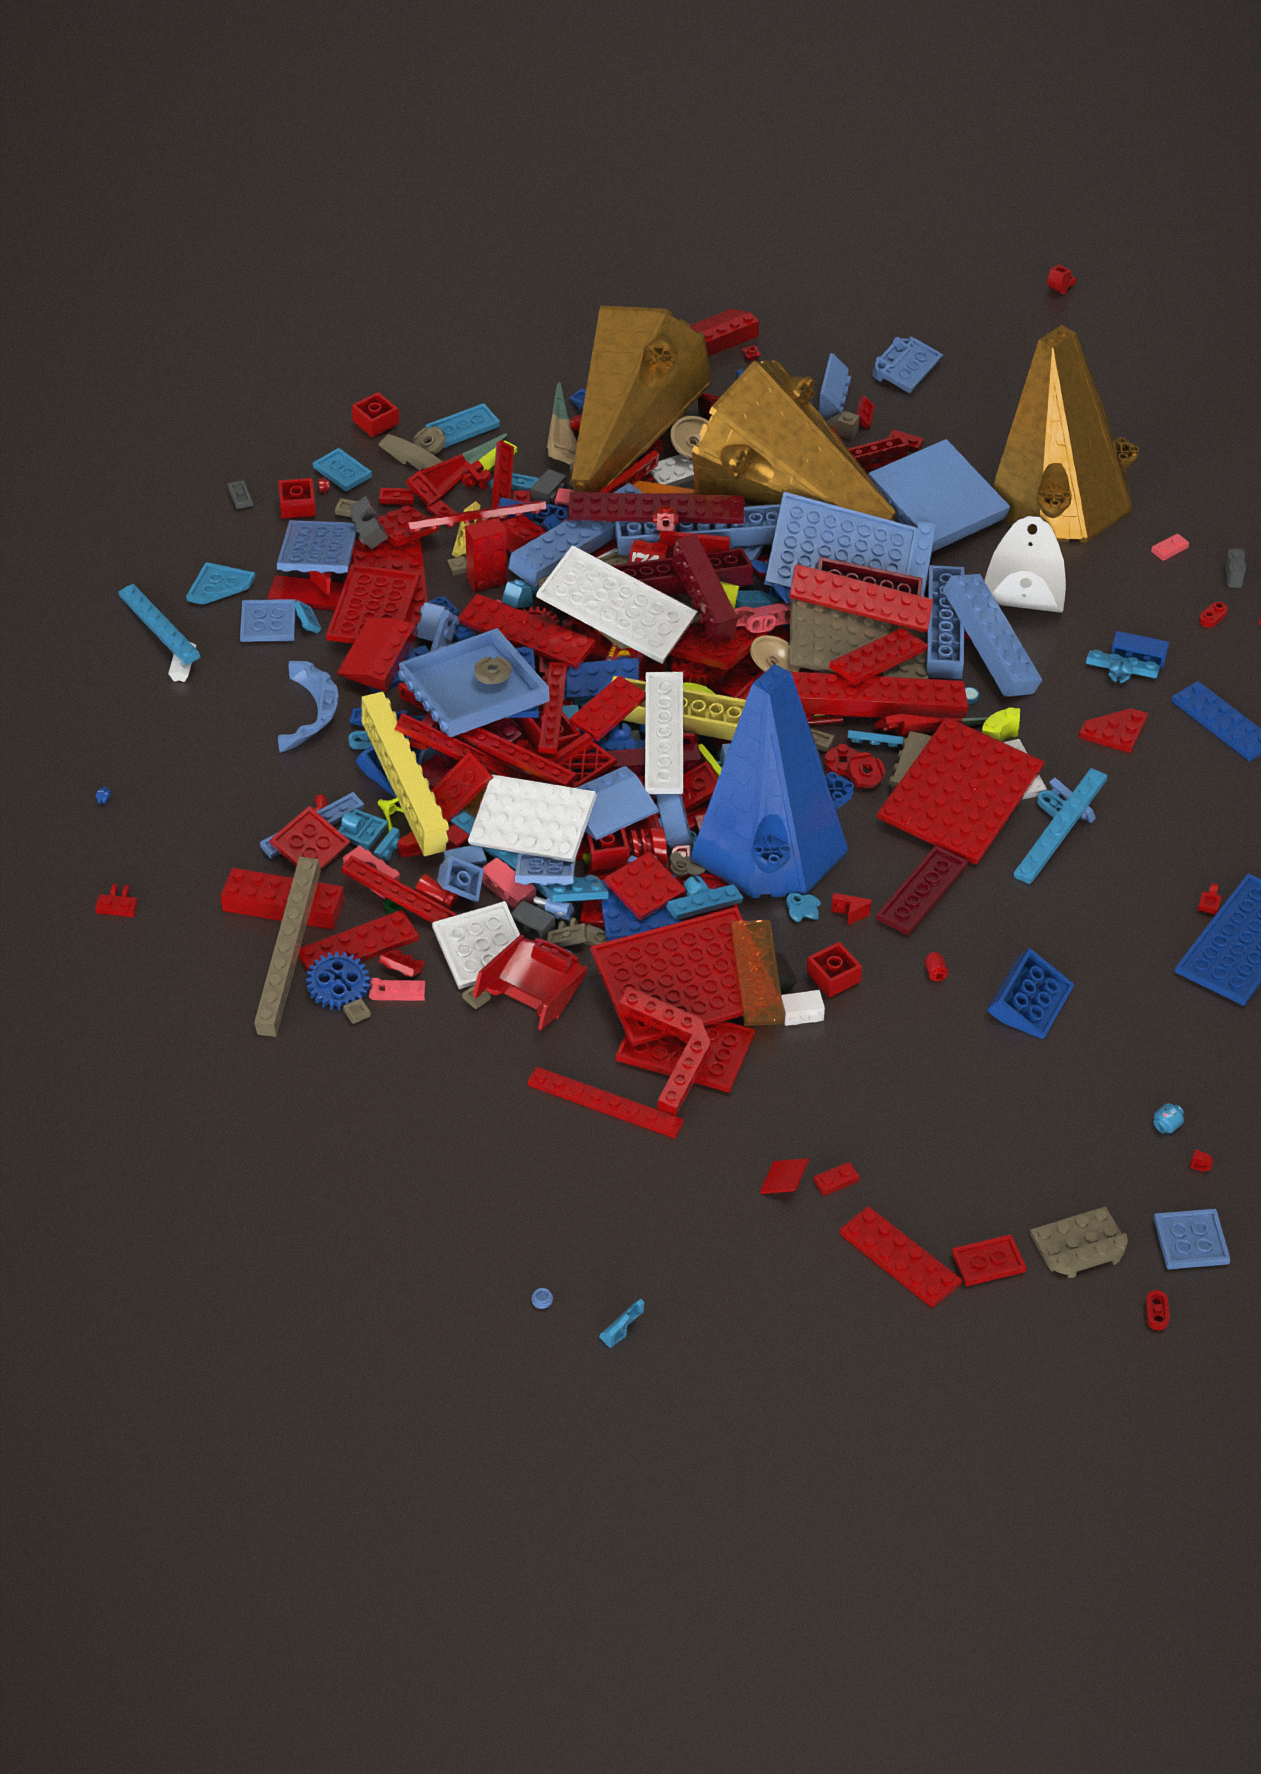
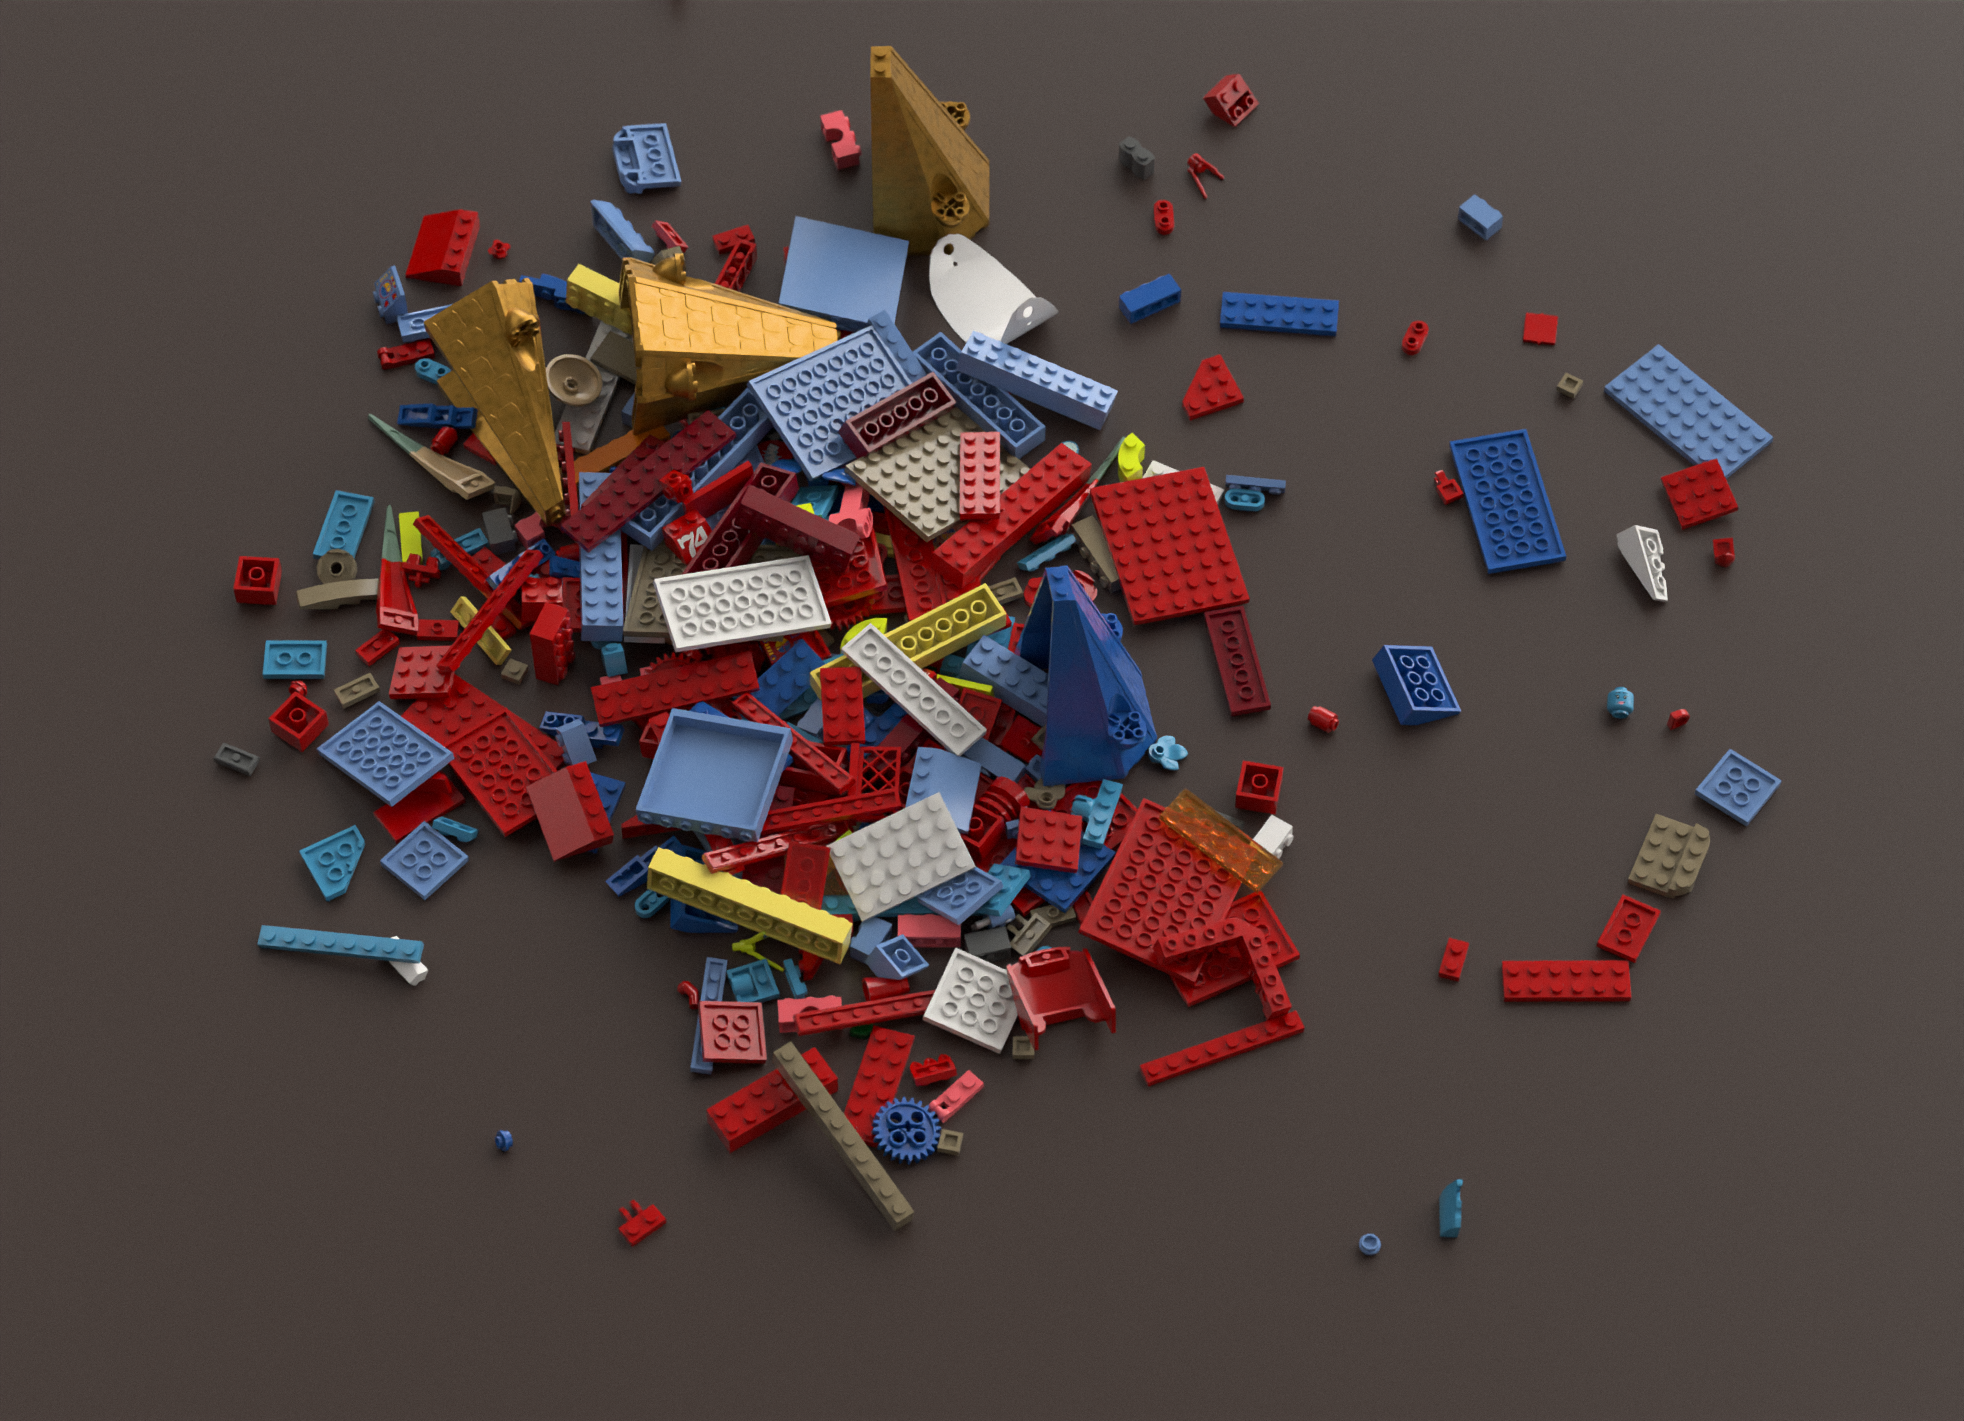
camera: 45 degrees left, 10 degrees up
(325, 695) = (575, 893): medium blue windscreen -> none
(370, 529) = (384, 688): dark grey arch -> none
(445, 630) = (603, 750): medium blue plate -> none
(485, 674) = (728, 760): dark tan tile -> none
(770, 650) = (903, 545): tan dish -> none
(784, 1176) = (1421, 991): red piece -> none
(855, 907) = (1206, 720): red slope -> none
(861, 598) = (910, 432): red plate -> none
(1060, 826) = (1277, 515): dark azure plate -> none
(1122, 667) = (1153, 325): dark azure plate -> none
(1159, 1311) = (1777, 865): red plate -> none
(1170, 547) = (1060, 176): coral plate -> none

